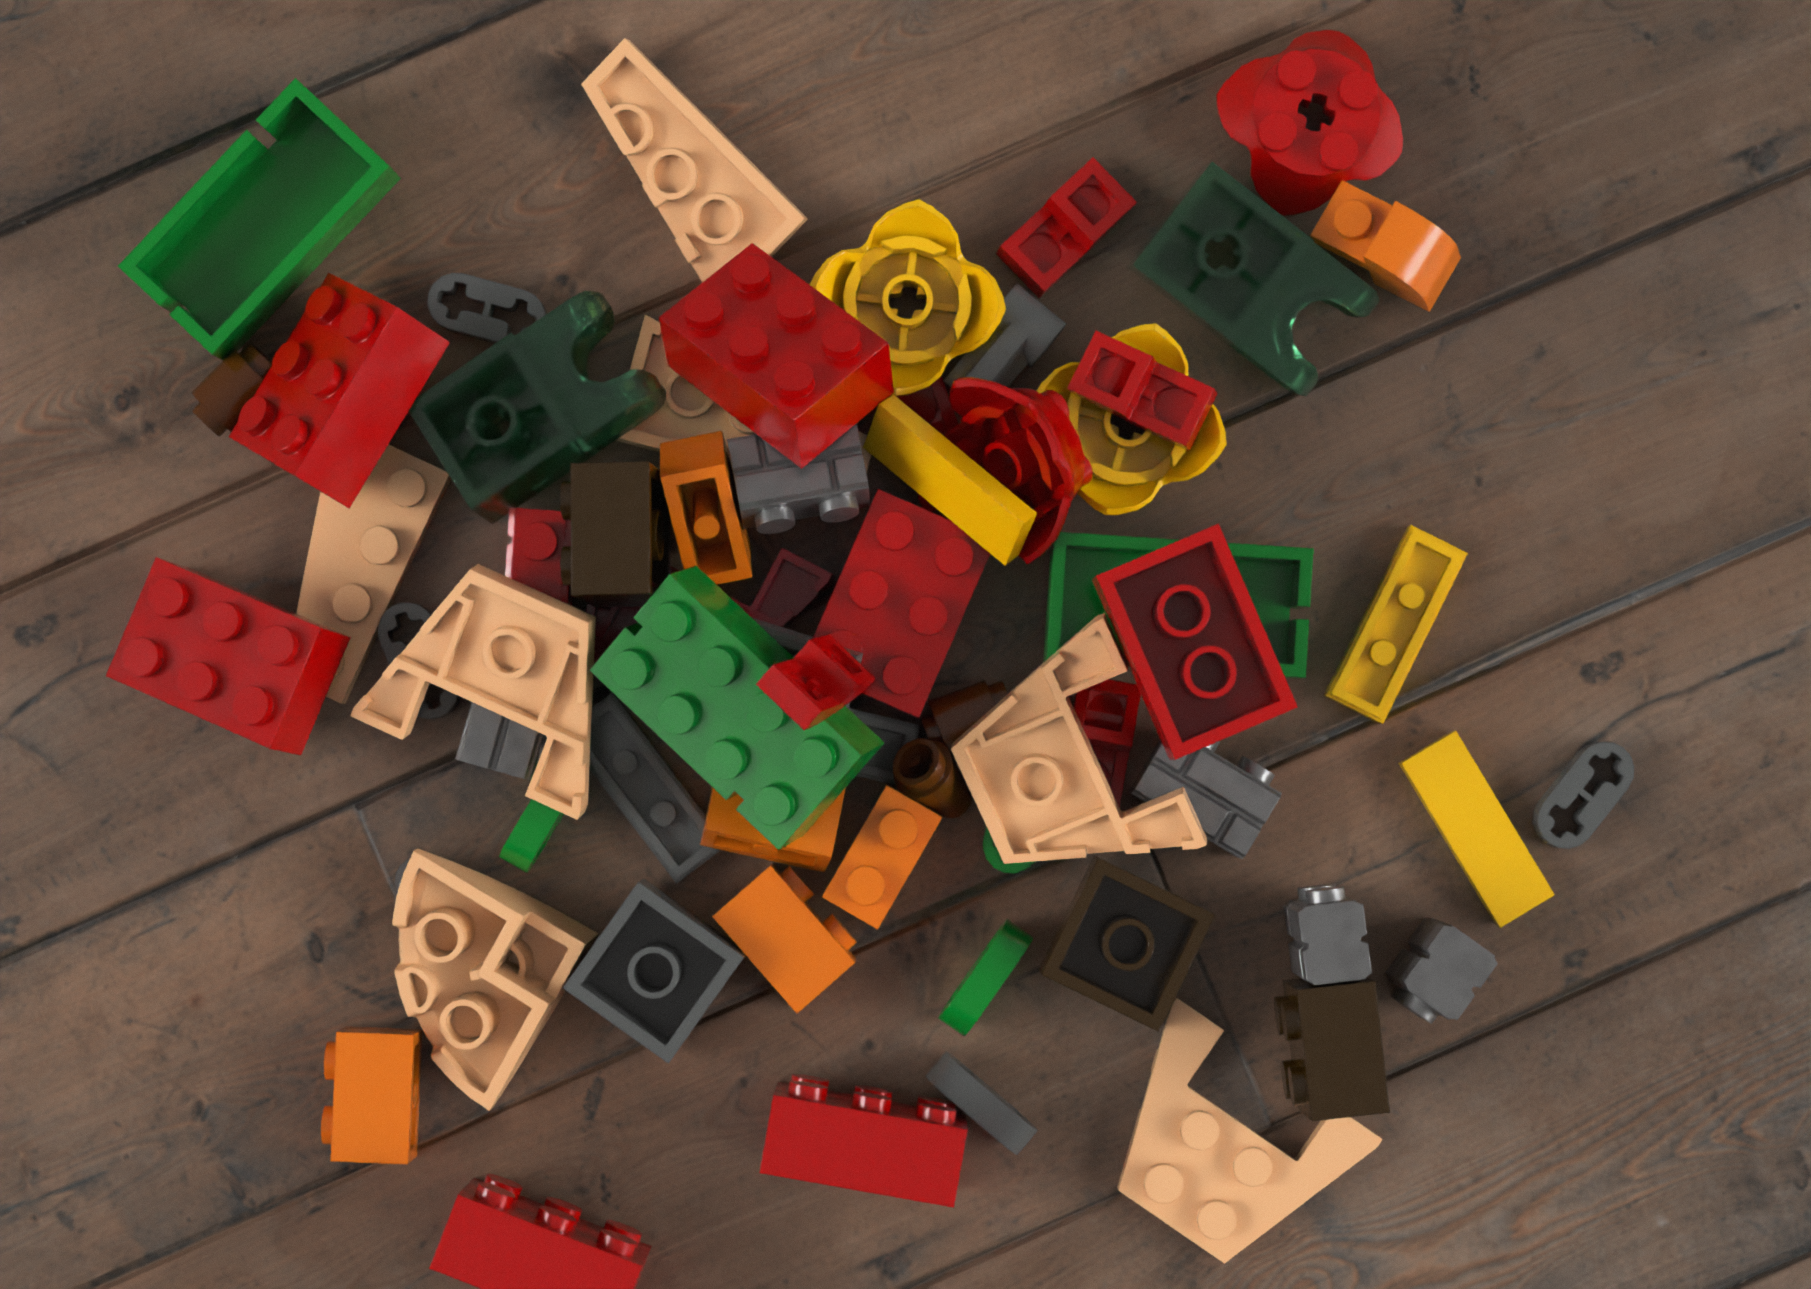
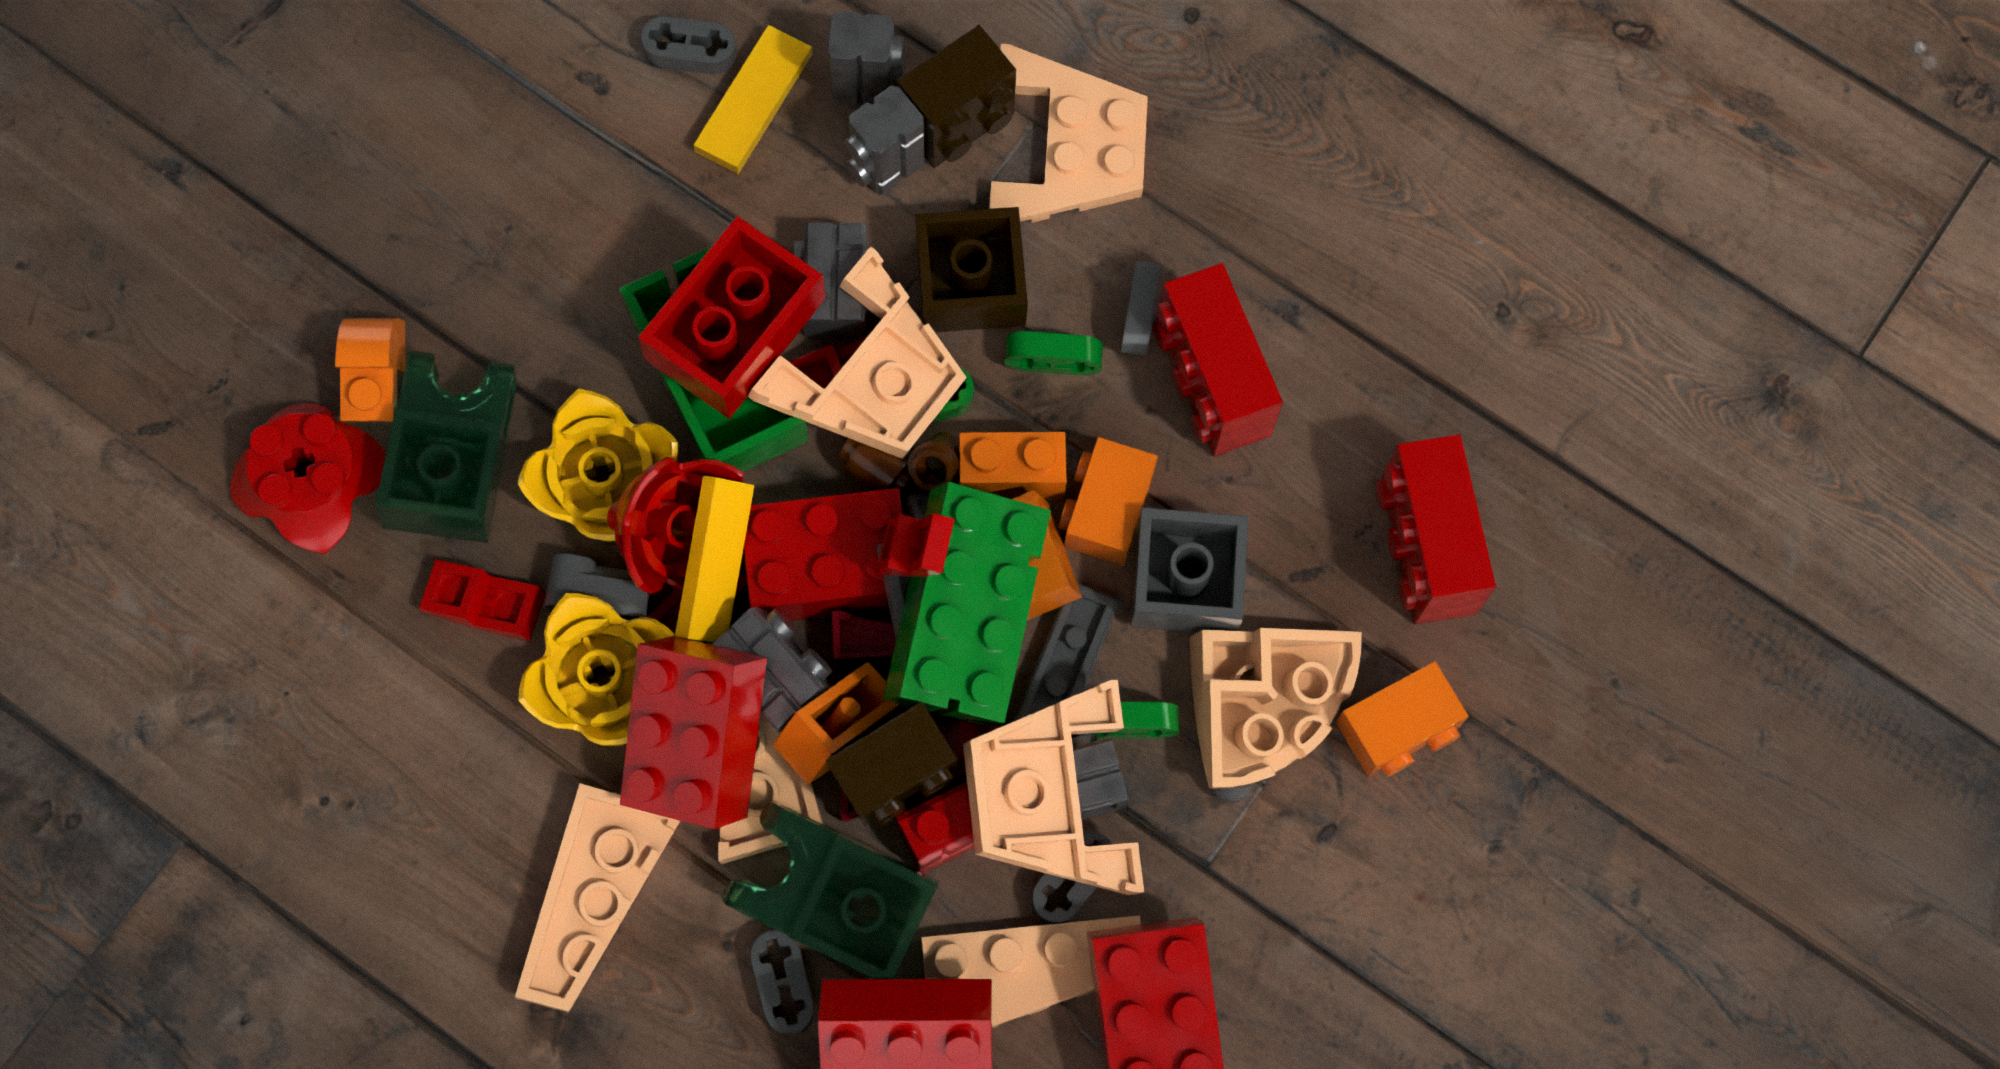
camera: 125 degrees left, 15 degrees down
(1142, 390) = (572, 466): red slope -> none
(1395, 624) = (641, 225): yellow tile -> none

